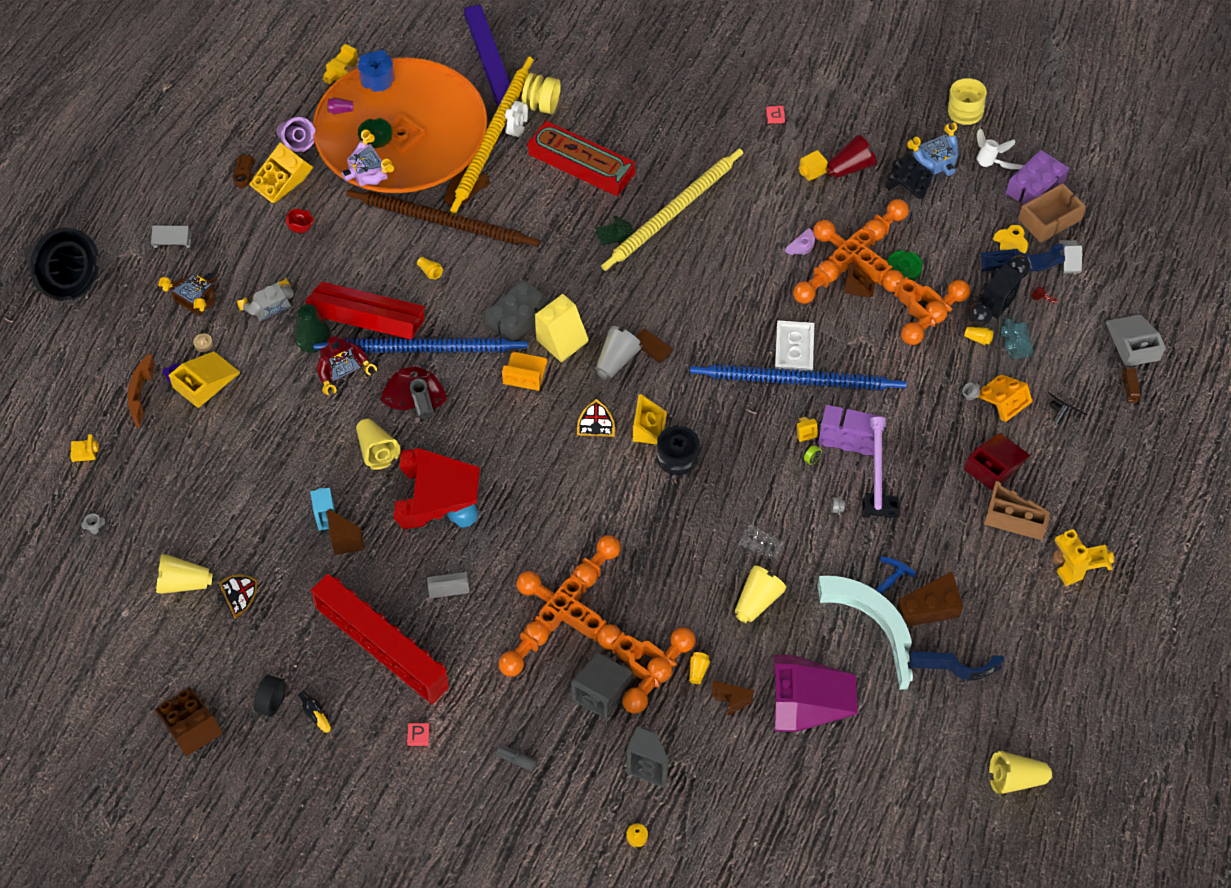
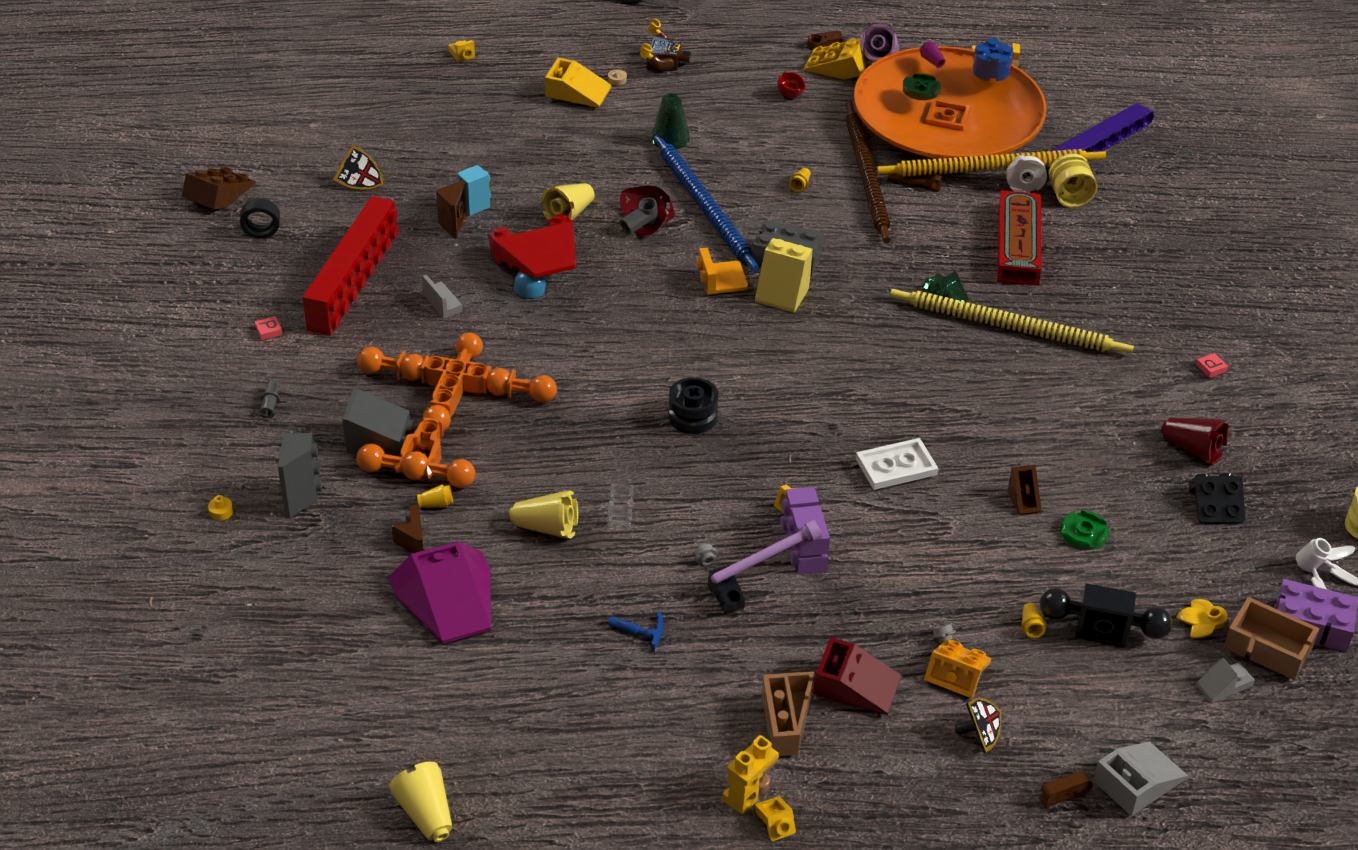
camera: 65 degrees right, 15 degrees down
(93, 518) = (390, 77): light grey plate -> none
(143, 372) = (539, 55): dark orange slope -> none
(171, 236) = (717, 22): light grey hinge -> none
(181, 575) = (357, 128): light yellow cone -> none
(268, 300) = (689, 92): light grey torso -> none
(314, 711) = (261, 256): black piece -> none
(340, 360) = (645, 151): torso -> none
(365, 163) = (874, 88): torso -> none
(367, 310) = (716, 152): red brick -> none
(596, 420) = (689, 335): shield -> none
(616, 352) = (785, 326): light grey cone -> none
(648, 421) = (720, 369): yellow slope -> none
(653, 346) = (819, 357): reddish brown tile -> none
(802, 244) = (1046, 435): lavender plate -> none
(812, 455) = (758, 515): lime tile -> none
(813, 165) = (1160, 409): yellow brick -> none
(857, 251) = (1062, 476): orange piece -> none
(858, 595) = (571, 640): light aqua arch -> none
(882, 383) = (859, 481): blue hose -> none
(932, 602) = (619, 666): reddish brown wedge -> none
(938, 153) = (1273, 512): torso -> none
(948, 661) = (557, 742): dark blue piece -> none
(1017, 340) = (1053, 658): clear light blue bracket -> none
(1038, 262) = (1180, 636): dark blue piece -> none
(1040, 293) = (1141, 663): clear red hand -> none

